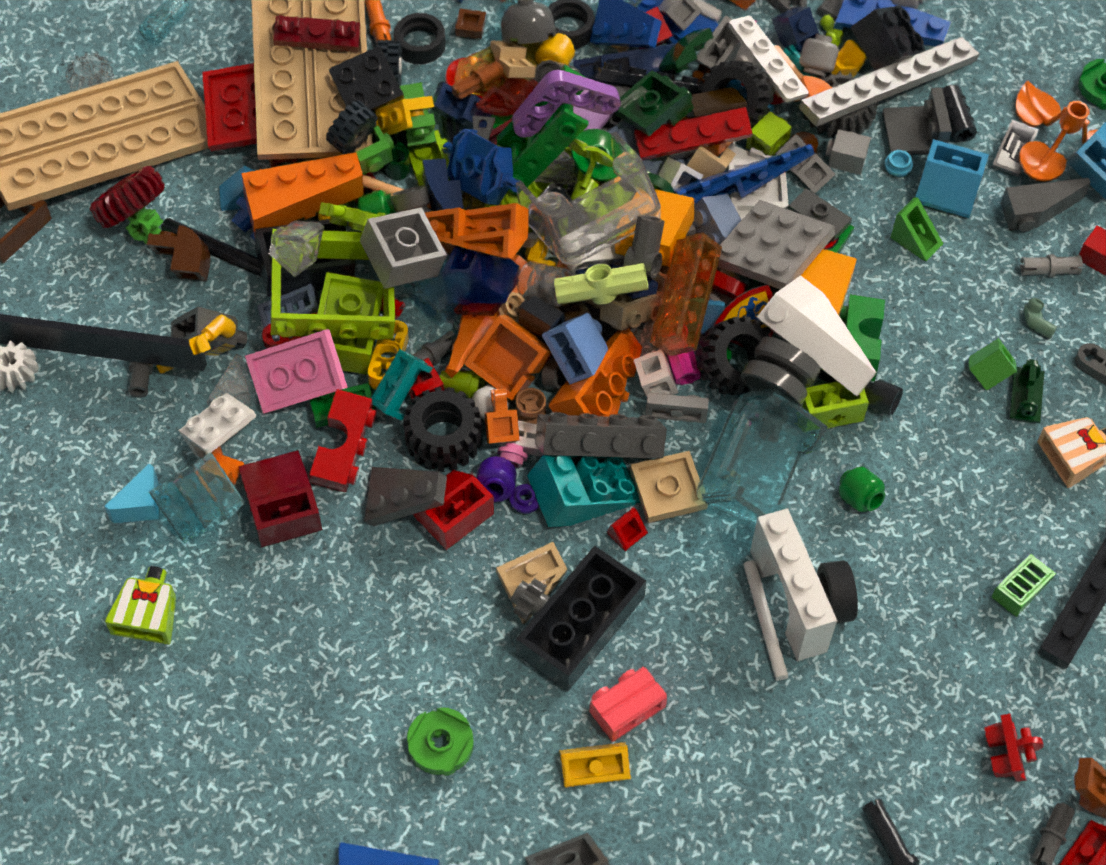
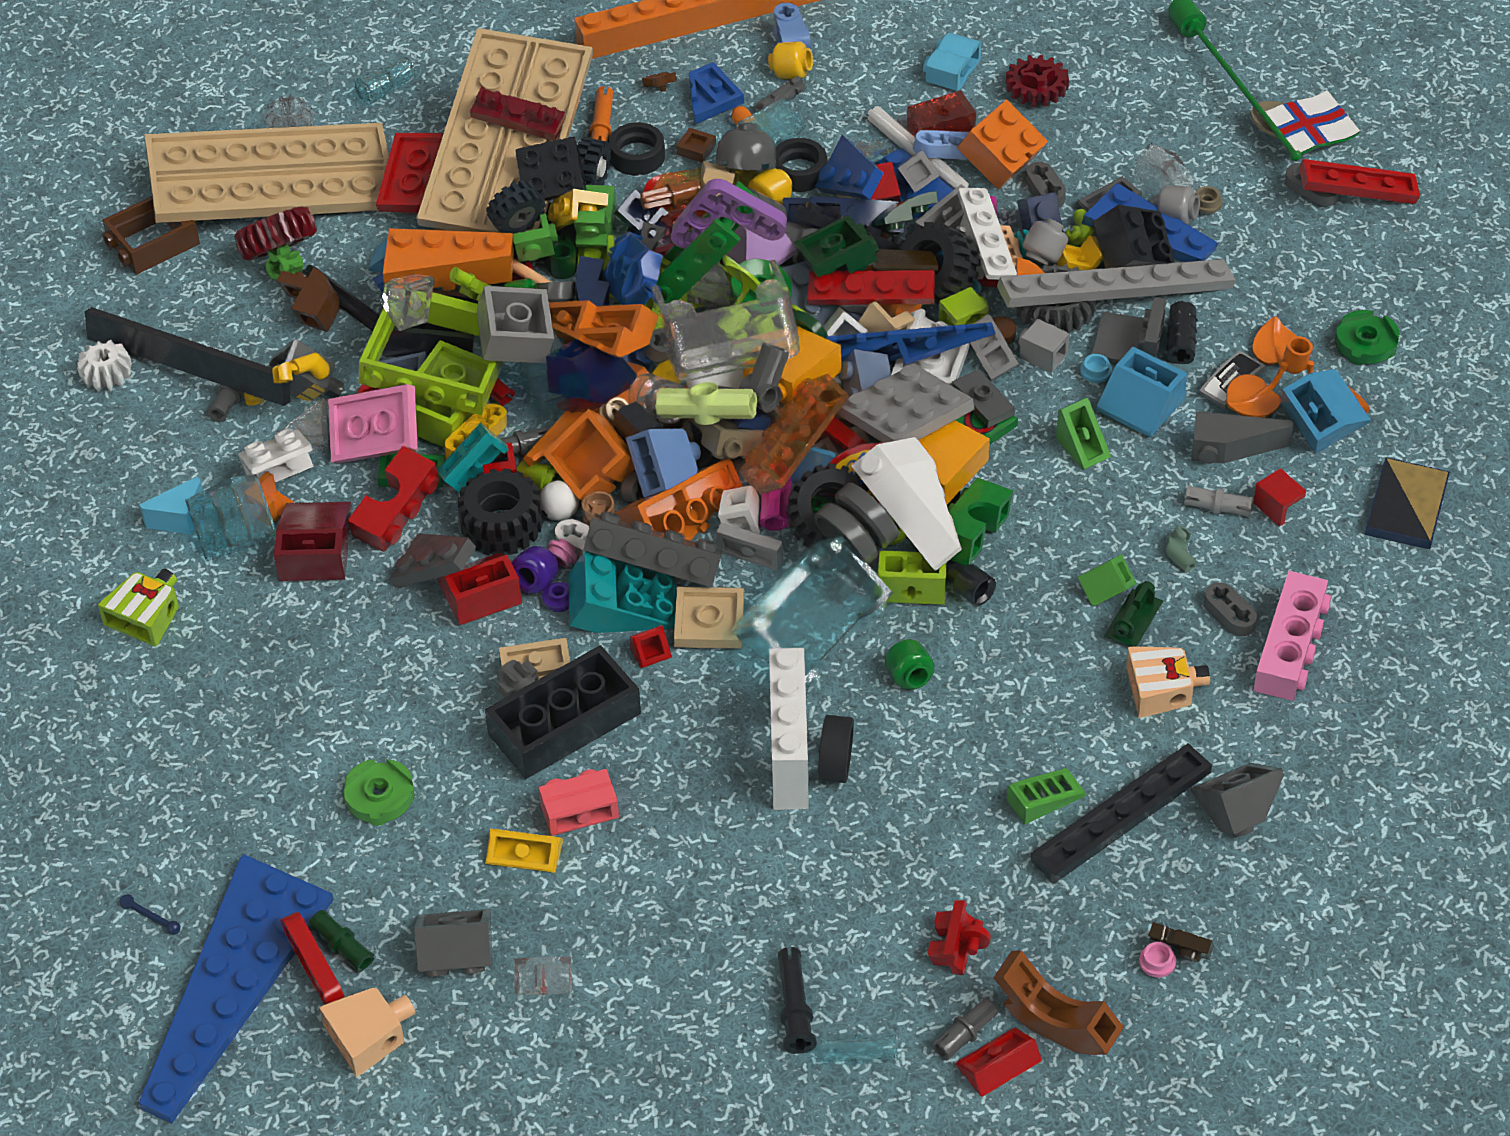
camera: 20 degrees right, 10 degrees down
(501, 423) = (559, 516): orange plate -> none
(765, 620) = (756, 763): white bar -> none

